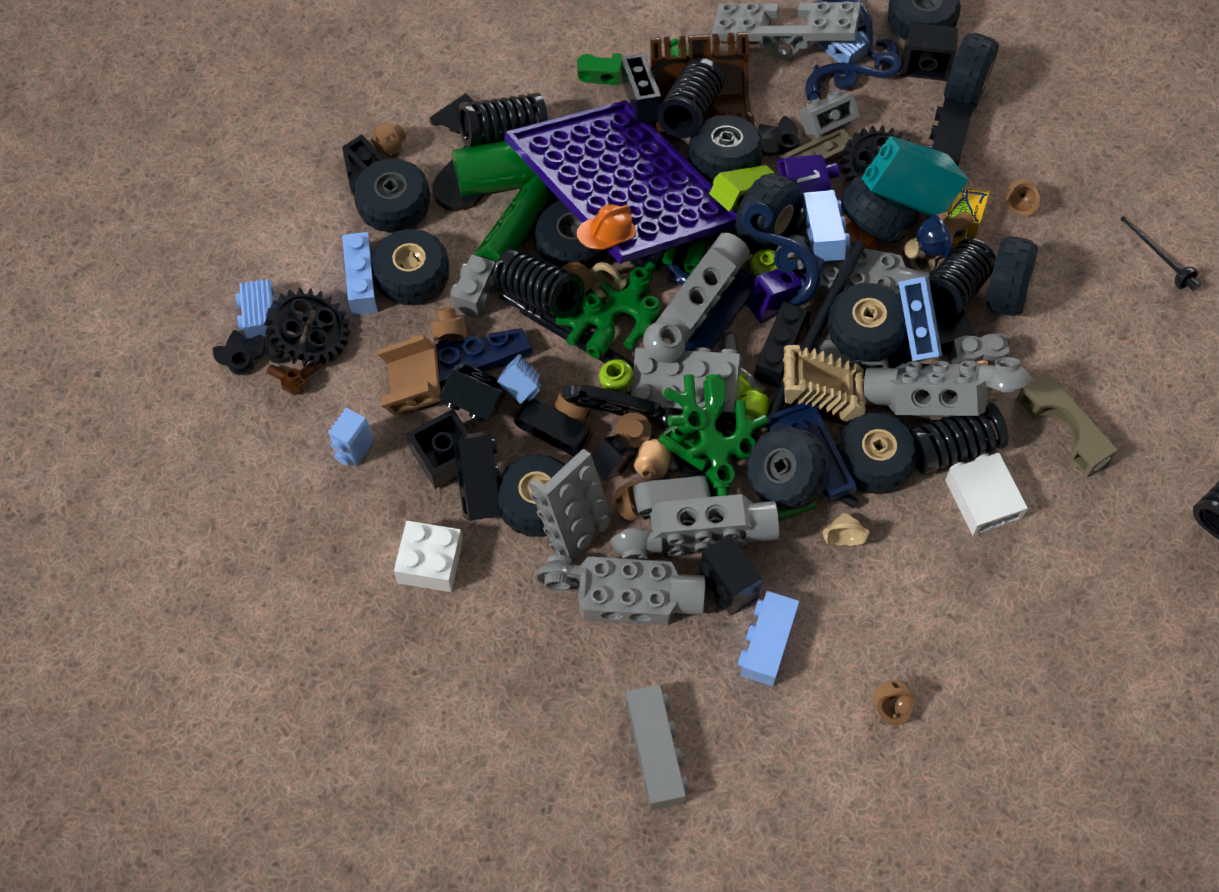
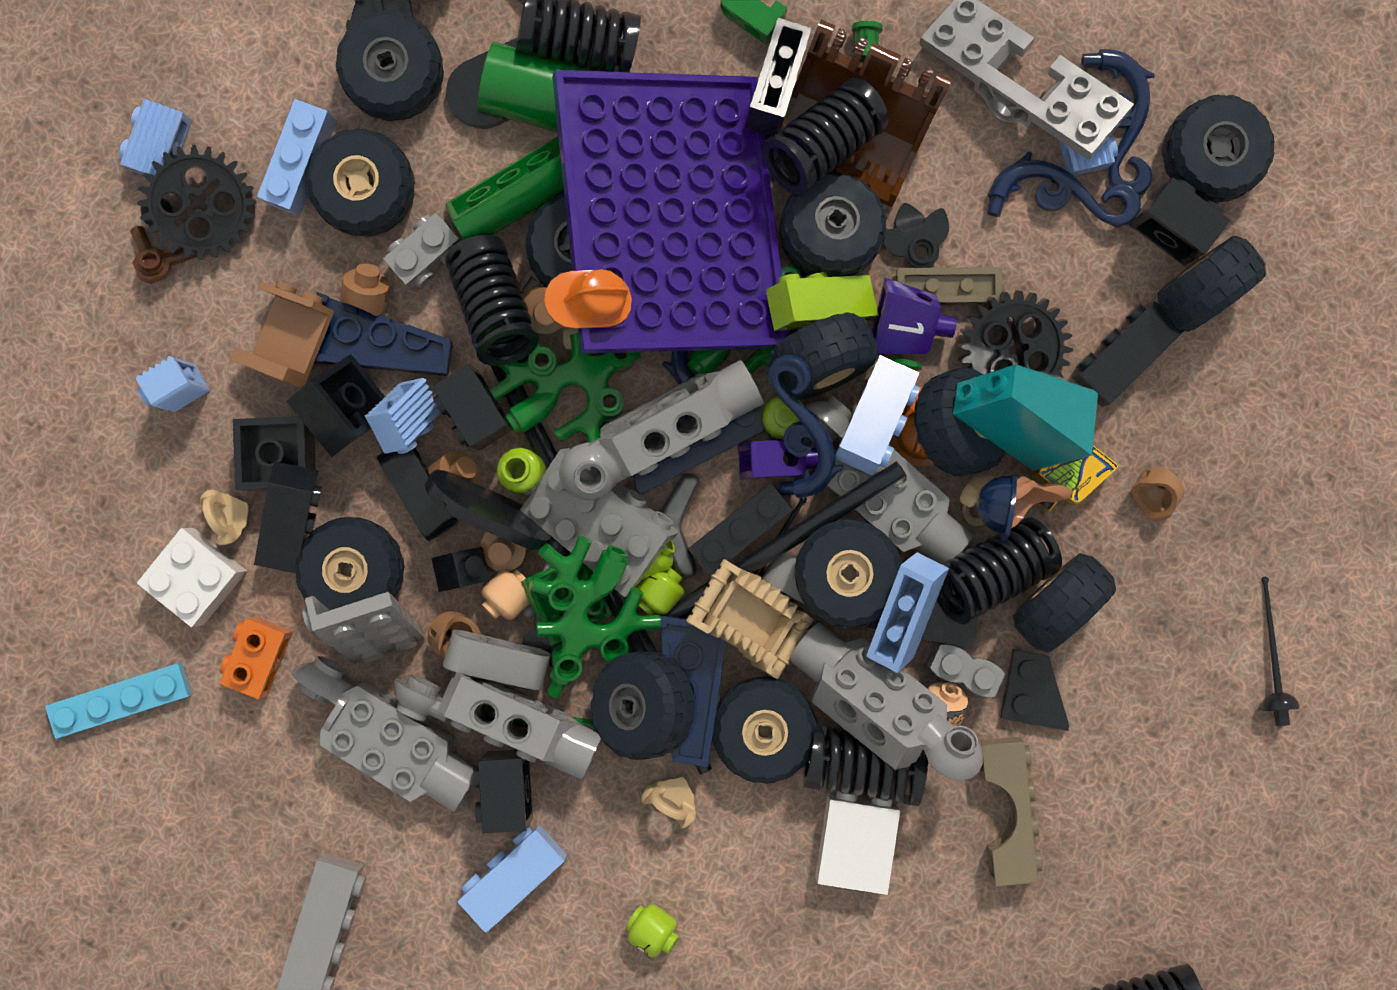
camera: 30 degrees right, 25 degrees up
(238, 350) = (110, 182): black plate -> none
(417, 671) = (118, 700): none -> medium azure plate
(429, 508) = (224, 515): none -> tan piece
(502, 587) = (254, 657): none -> orange brick
(563, 353) = (472, 407): none -> black brick
(829, 113) = (995, 241): light grey brick -> none
(888, 621) = (652, 930): none -> lime head
(1033, 349) = (1033, 692): none -> black wing

